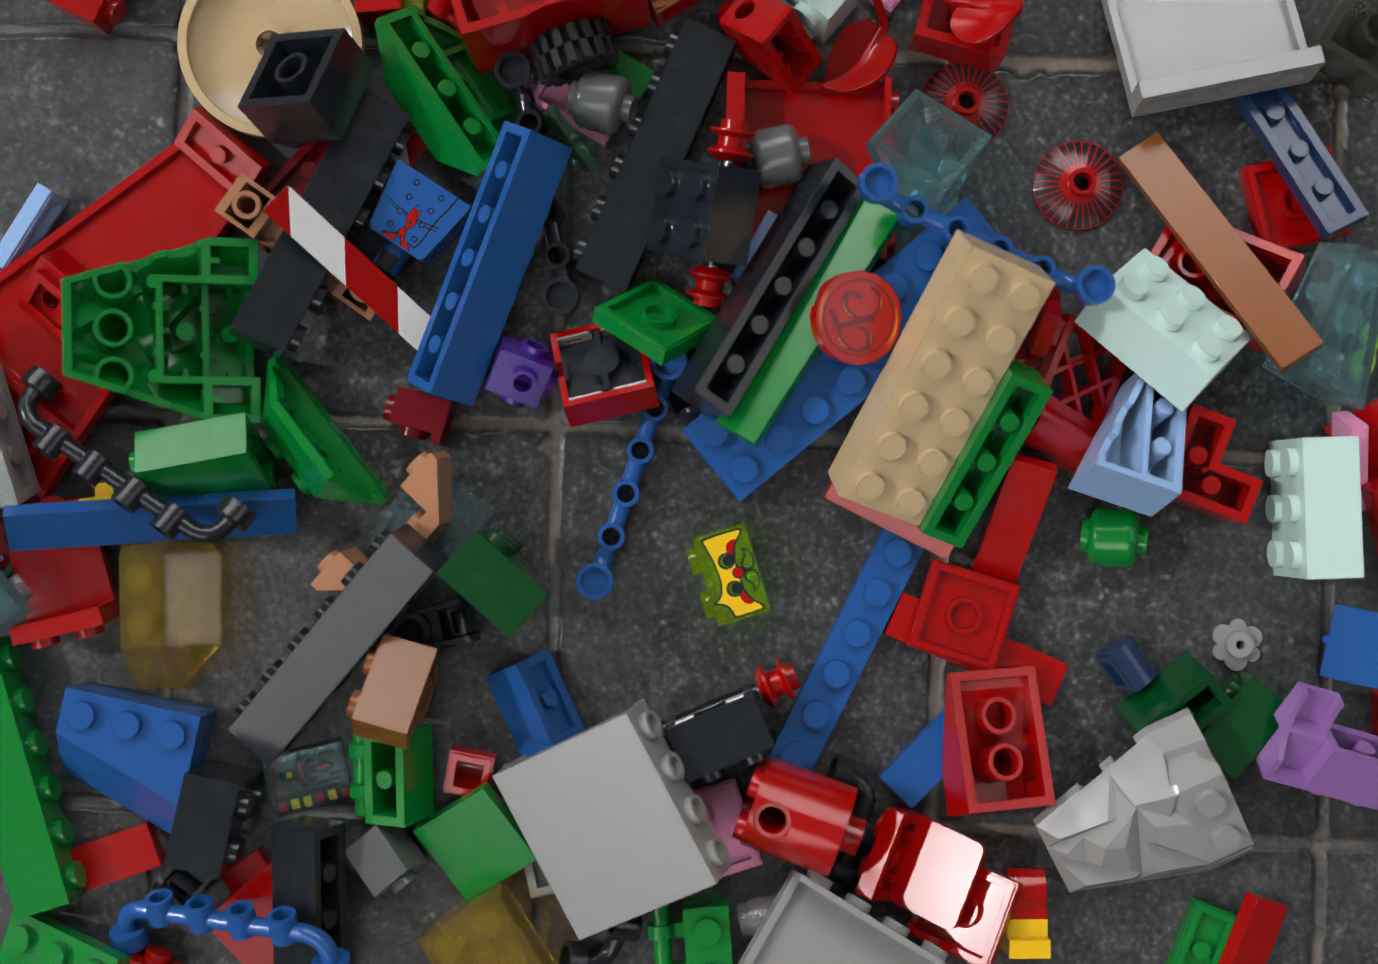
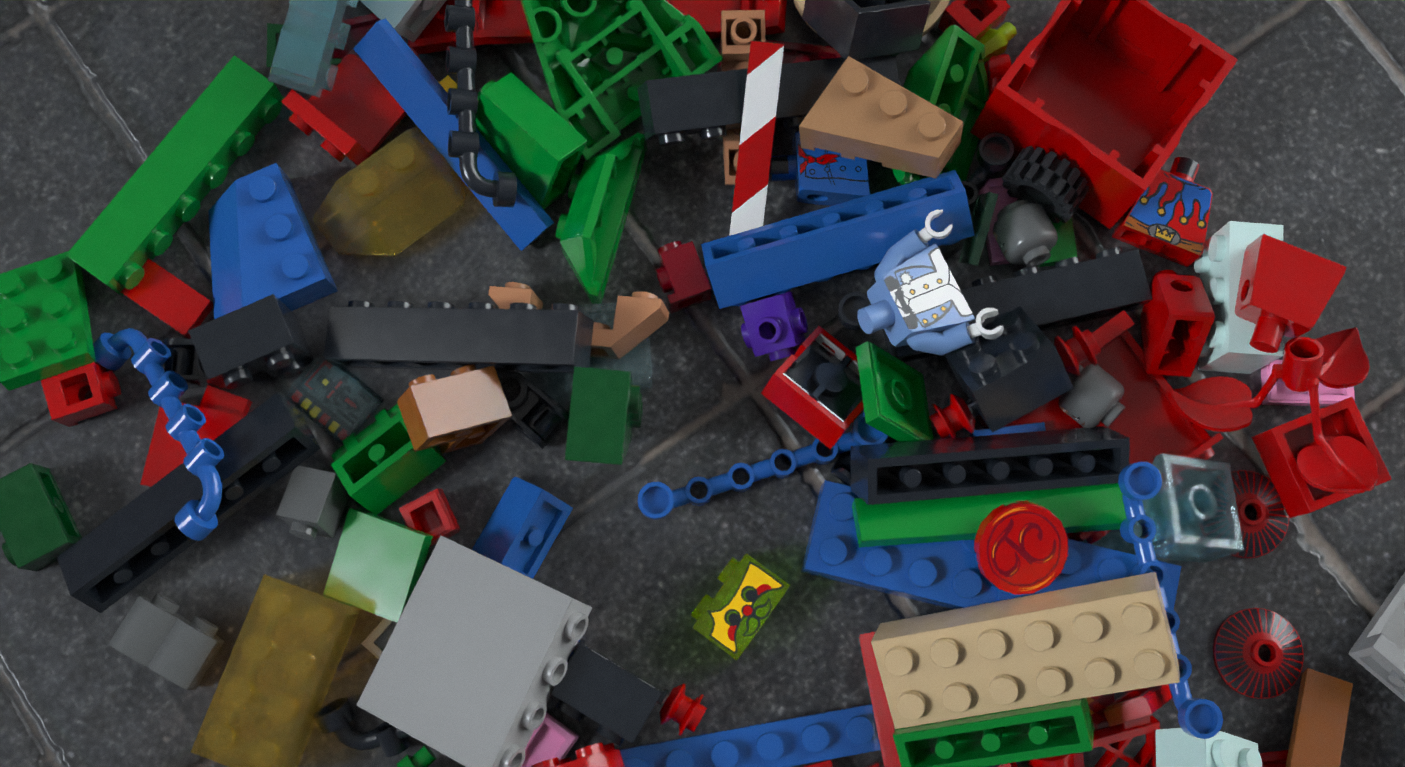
camera: 40 degrees right, 10 degrees down
(416, 153) = (880, 122): none -> medium nougat wedge
(592, 237) = (920, 299): none -> torso

